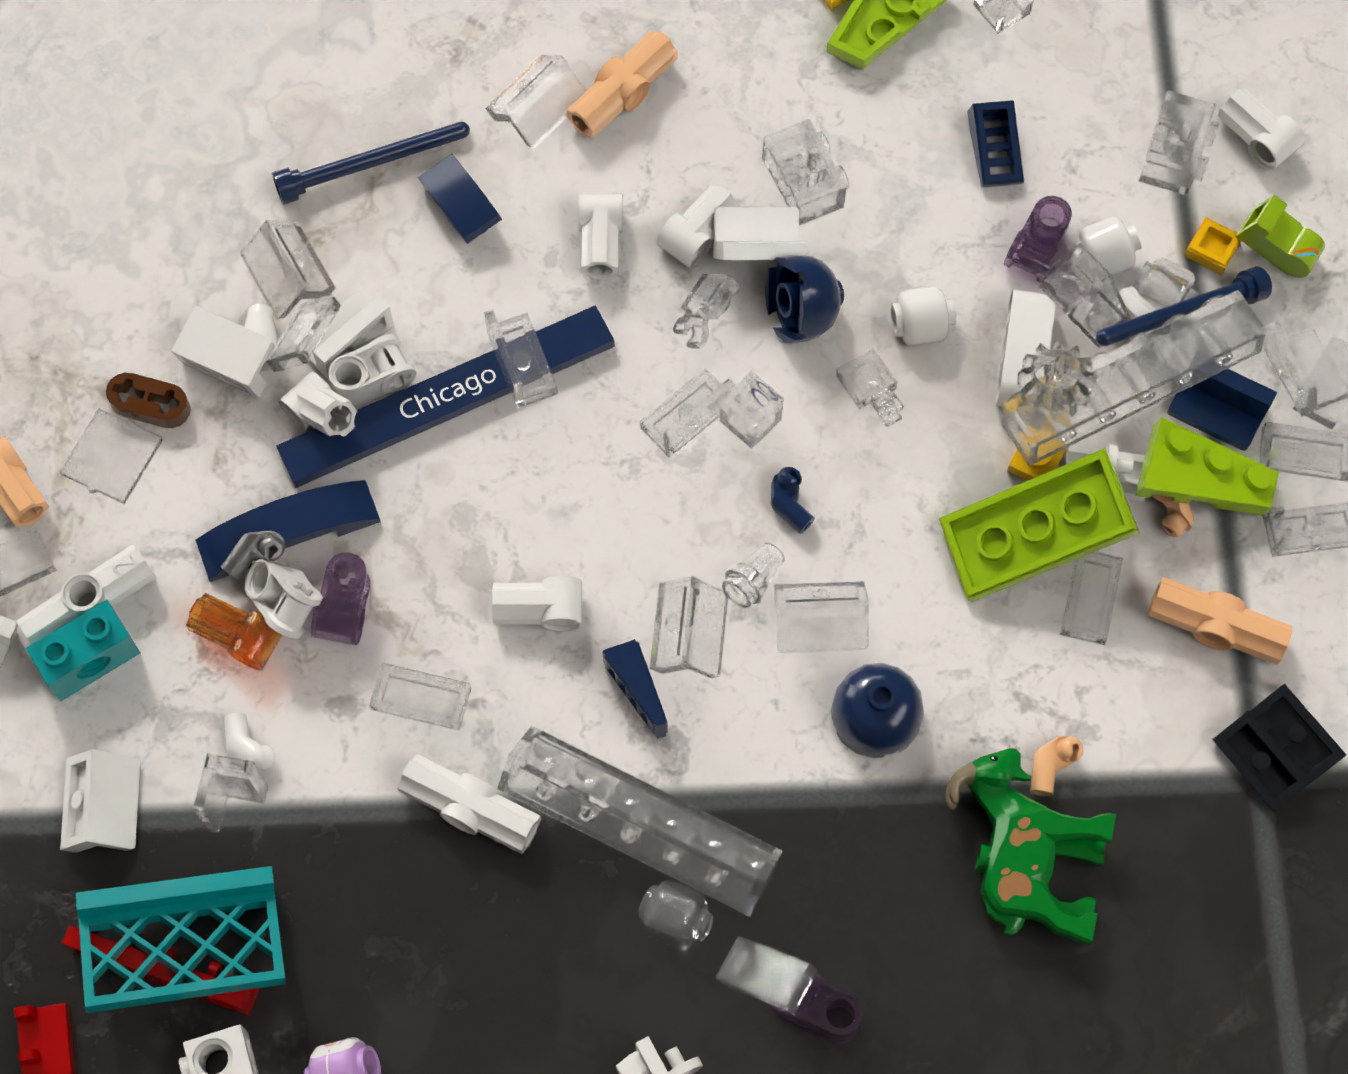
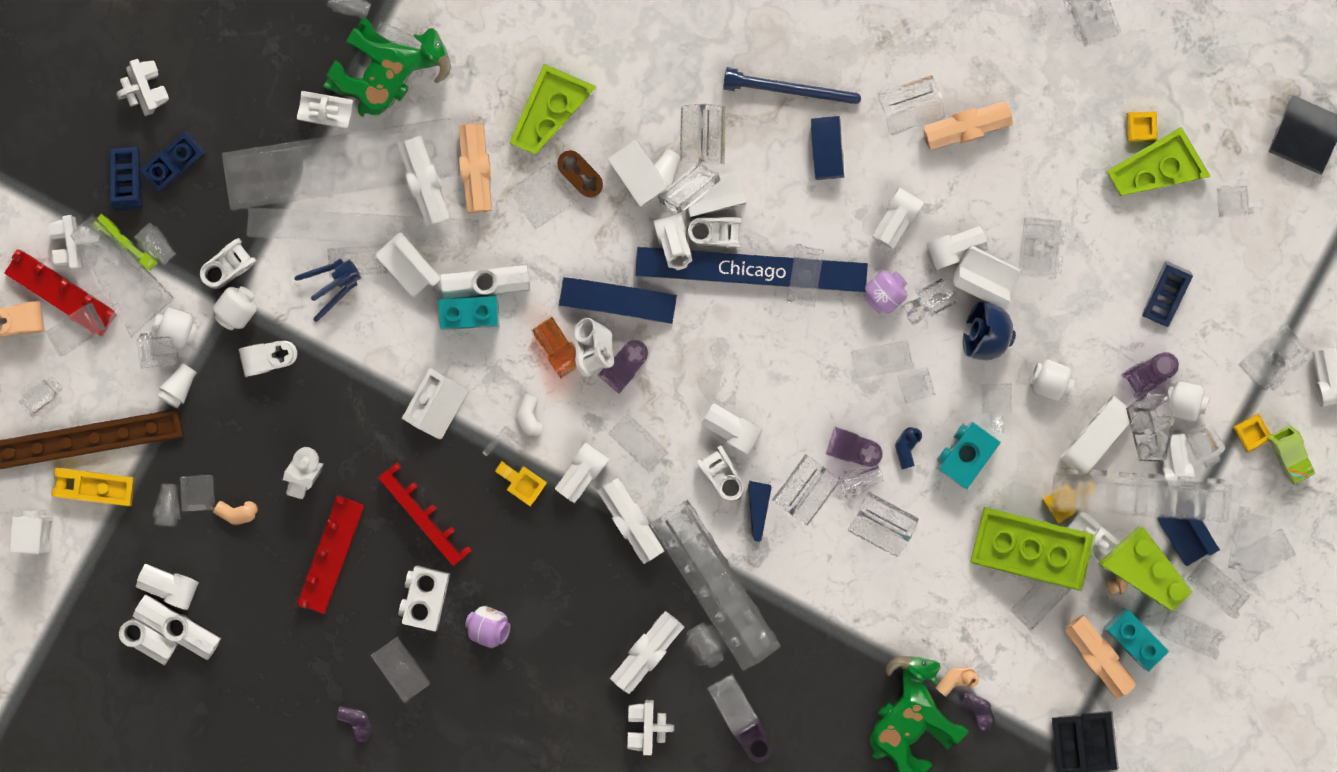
camera: 30 degrees right, 20 degrees up
(60, 341) = (549, 107): none -> lime wing
(166, 903) = (451, 489): teal fence -> none
(253, 547) = (593, 309): flat silver arm -> none
(288, 840) = (524, 484): none -> yellow plate
(362, 765) = (584, 468): none -> white piece
(555, 666) = (721, 472): none -> white piece
(598, 975) = (647, 652): none -> white piece
(640, 323) = (886, 291): none -> lavender head
(715, 537) = (848, 447): none -> clear purple piece
(877, 710) = (881, 595): dark blue cylinder -> none
(883, 439) = (983, 447): none -> teal brick
(1044, 392) = (1087, 471): clear gear -> none
(1112, 783) = (982, 709): none -> clear purple arm
(1251, 569) = (1136, 639): none -> teal brick
(1252, 284) = (1254, 472): dark blue piece -> none

